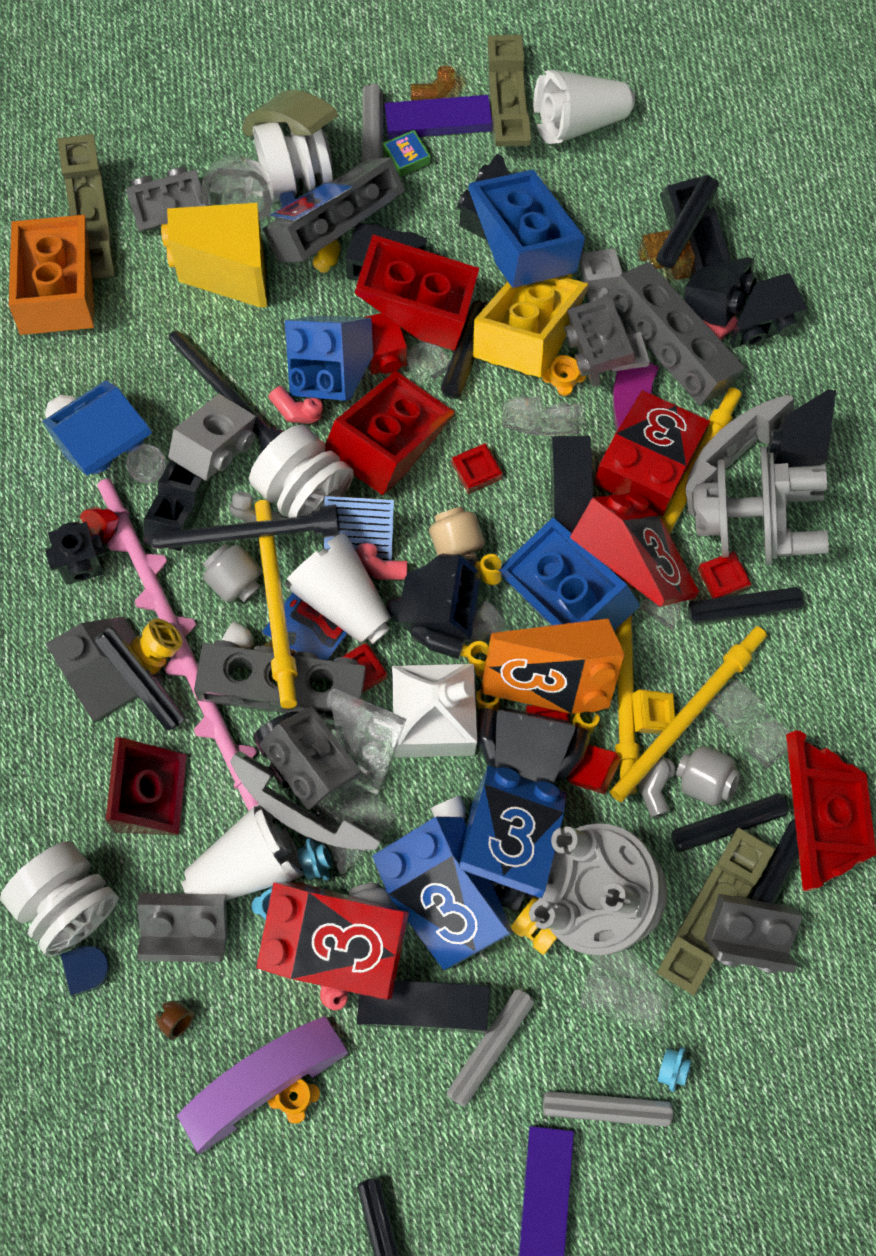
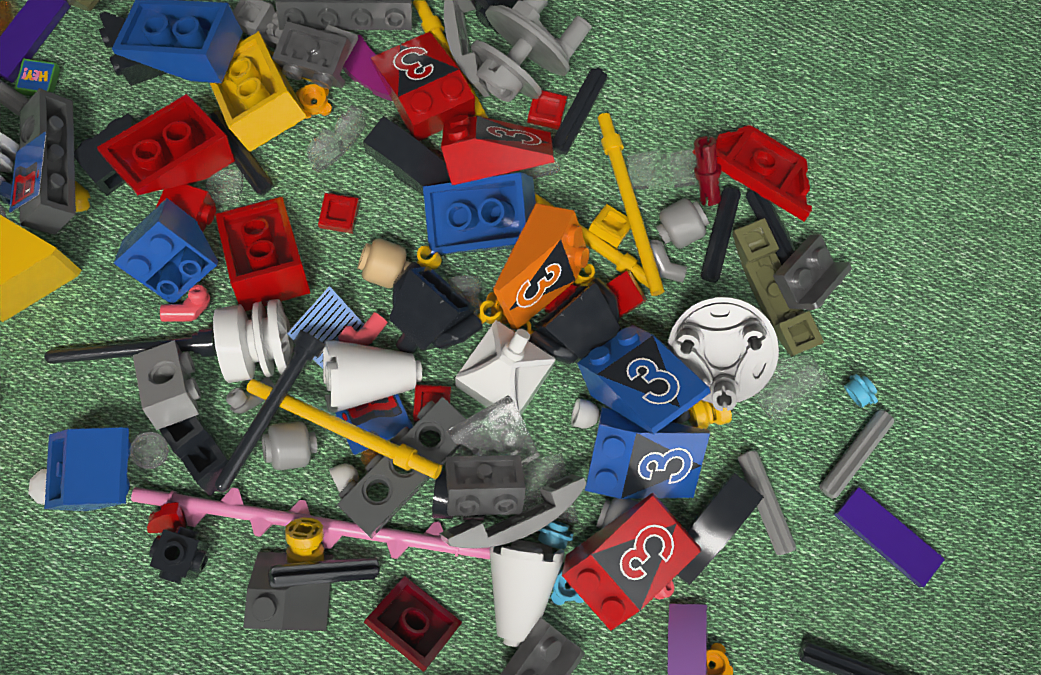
camera: 60 degrees left, 5 degrees up
(778, 760) = (707, 170): none -> dark red pin

